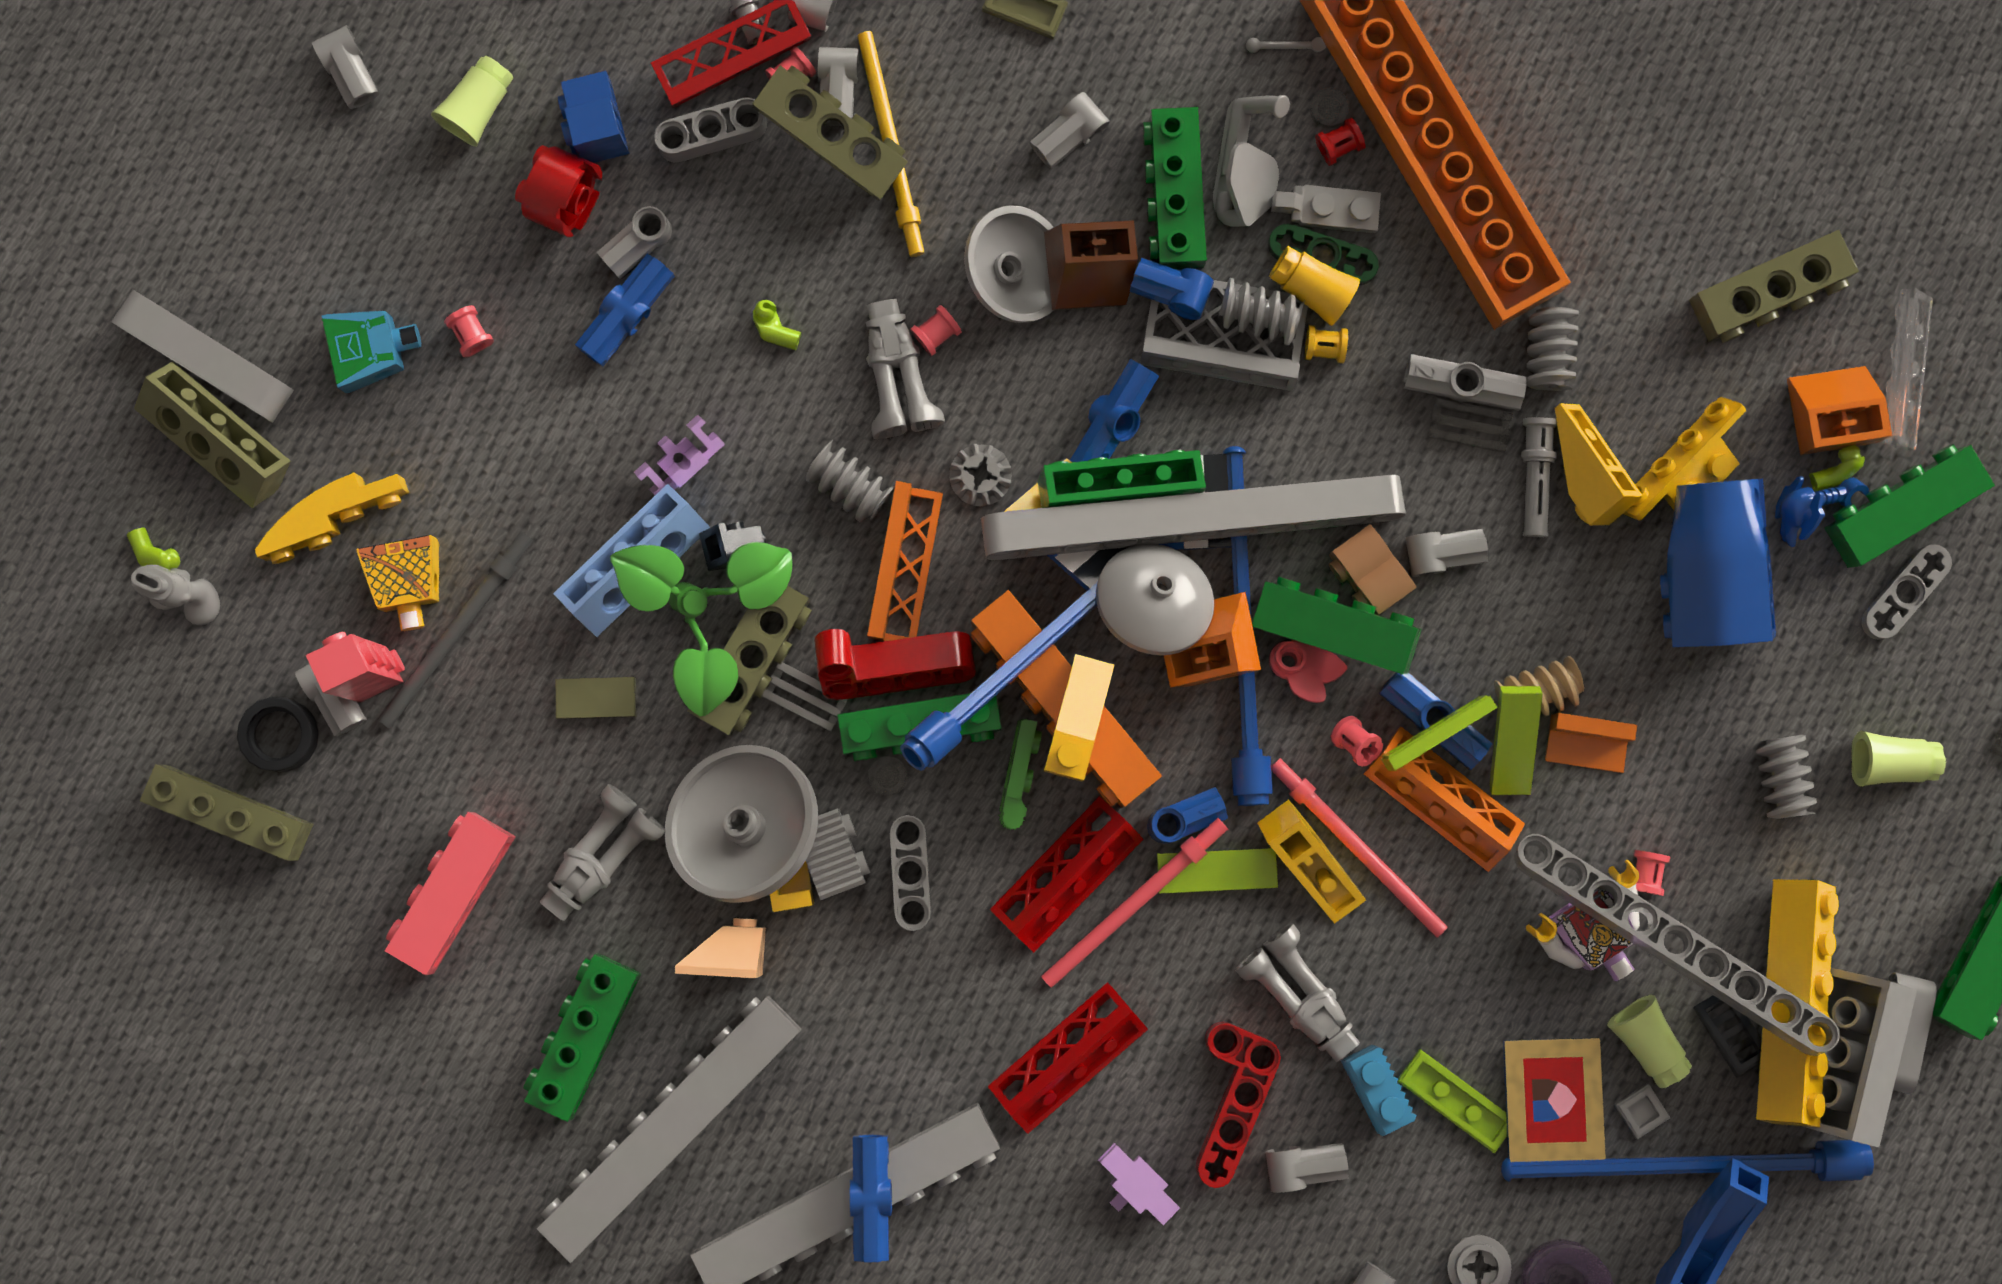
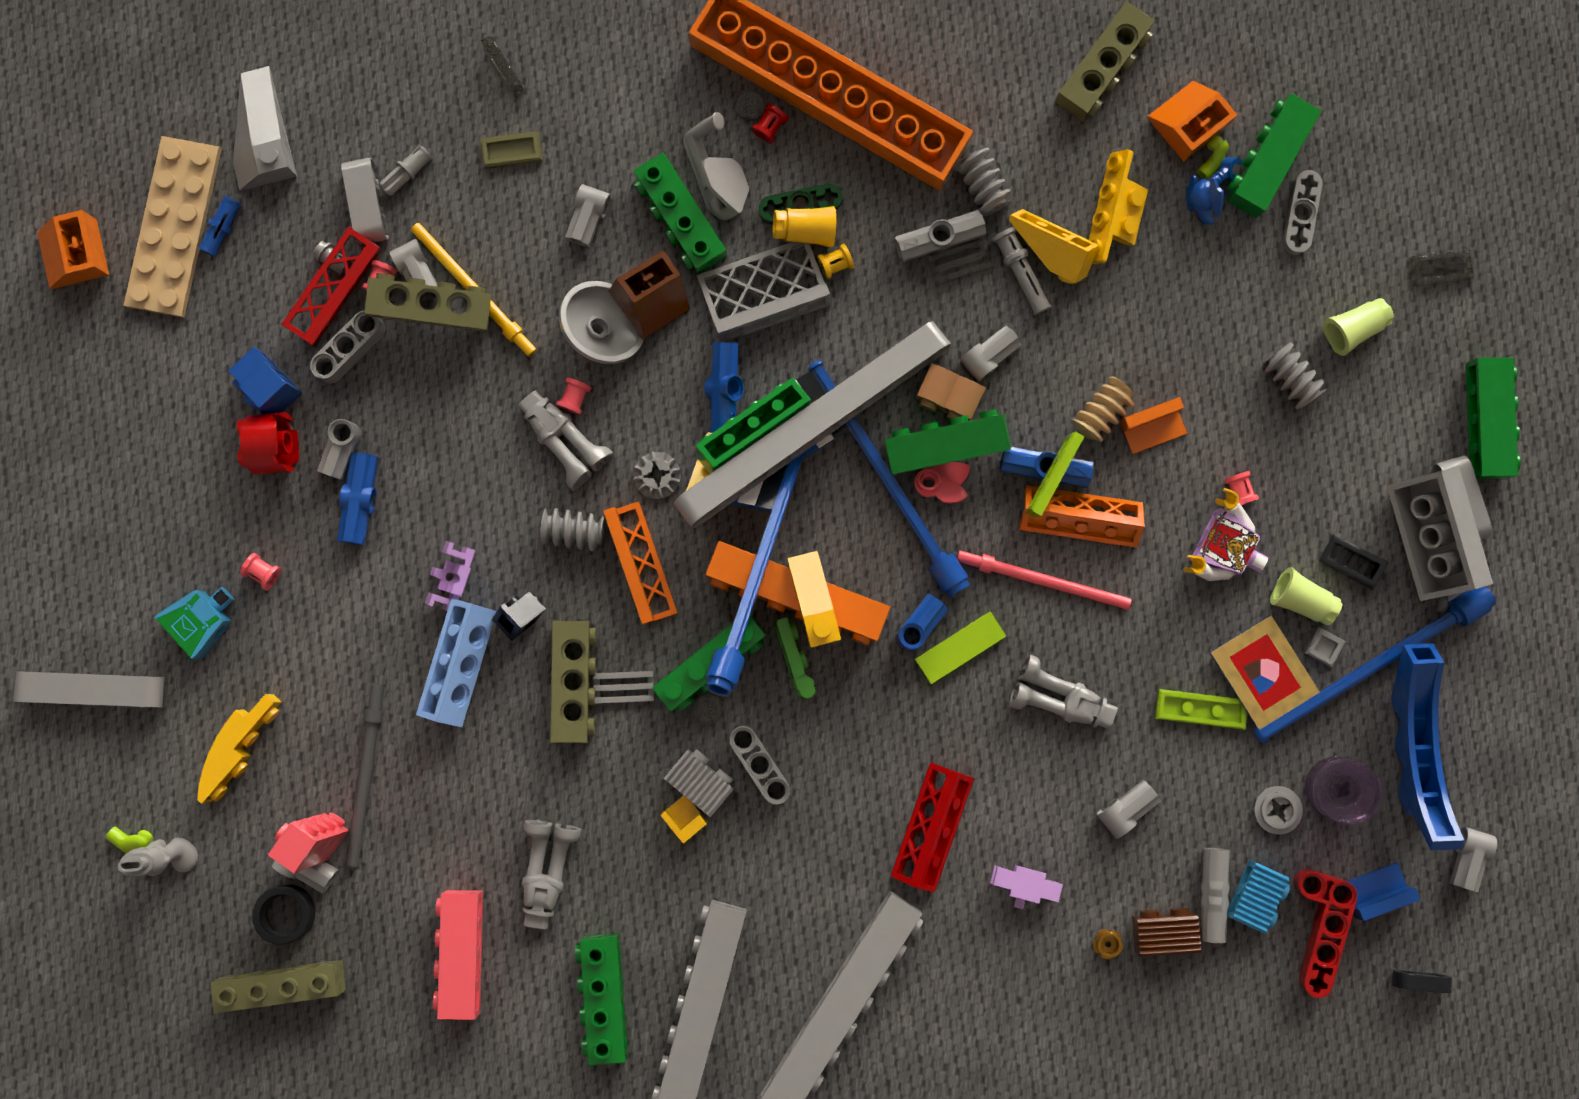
camera: 30 degrees left, 0 degrees up
(211, 434) = (124, 738): olive brick -> none
(345, 64) = (75, 439): light grey piece -> none
(403, 577) = (309, 760): torso -> none
(474, 100) = (176, 415): yellowish green plant -> none
(595, 698) = (484, 767): olive tile -> none
(650, 579) = (474, 668): bright green plant -> none
(728, 952) = (670, 886): light nougat slope -> none
(741, 823) = (629, 796): light grey dish -> none
(770, 327) = (462, 456): lime arm -> none
(870, 1198) = (856, 997): blue piece -> none
(891, 665) = (669, 634): red beam -> none
(1071, 878) = (868, 707): red fence -> none
(1144, 614) = (815, 505): light grey dish -> none
(1182, 291) = (720, 279): blue piece -> none
(1192, 851) = (937, 644): coral bar -> none
(1223, 650) = (871, 499): orange slope -> none
(1229, 1108) = (1058, 800): red beam -> none
(1254, 45) = (718, 69): light grey hinge -> none
(1260, 312) = (780, 263): light grey piece -> none
(1310, 861) = (1018, 606): yellow slope -> none
(1330, 208) = (787, 171): light grey hinge -> none
(1357, 741) = (1003, 510): coral bush -> none
(1378, 1090) = (1147, 731): dark azure brick -> none
(1515, 740) = (1107, 451): lime tile -> none
(1694, 946) = (1301, 520): light grey beam -> none
(1719, 566) = (1175, 262): blue animal -> none
(1800, 963) = (1386, 519): yellow brick -> none
(1908, 367) = (1221, 66): clear plate -> none

